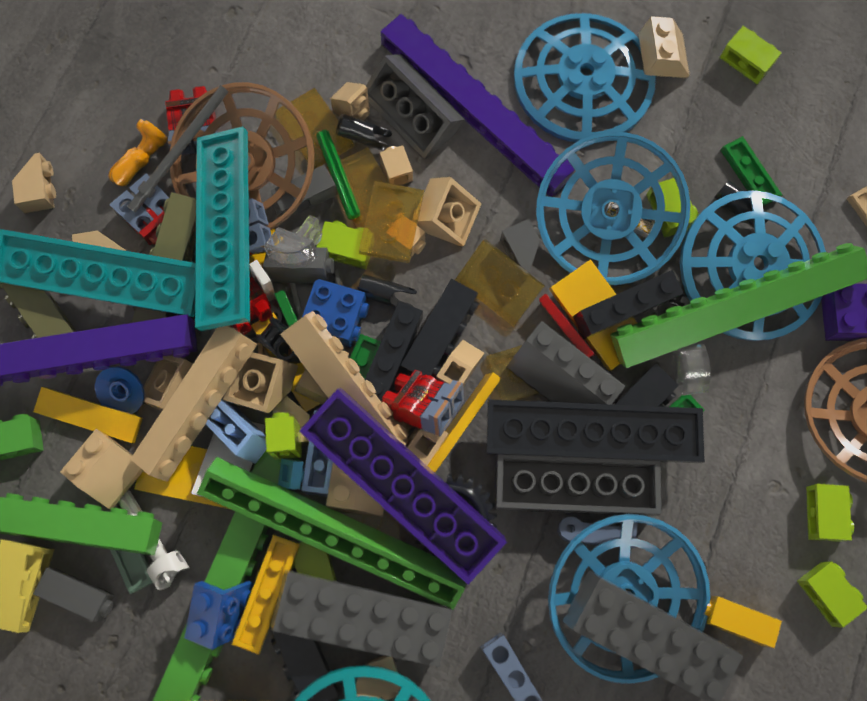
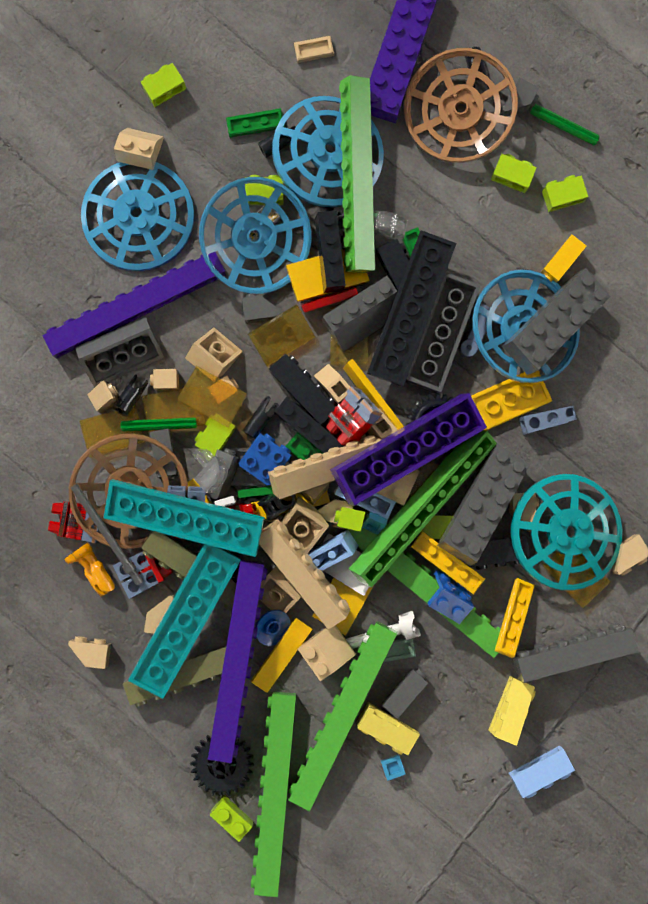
camera: 75 degrees left, 10 degrees up
(519, 610) = (510, 400): none -> yellow tile

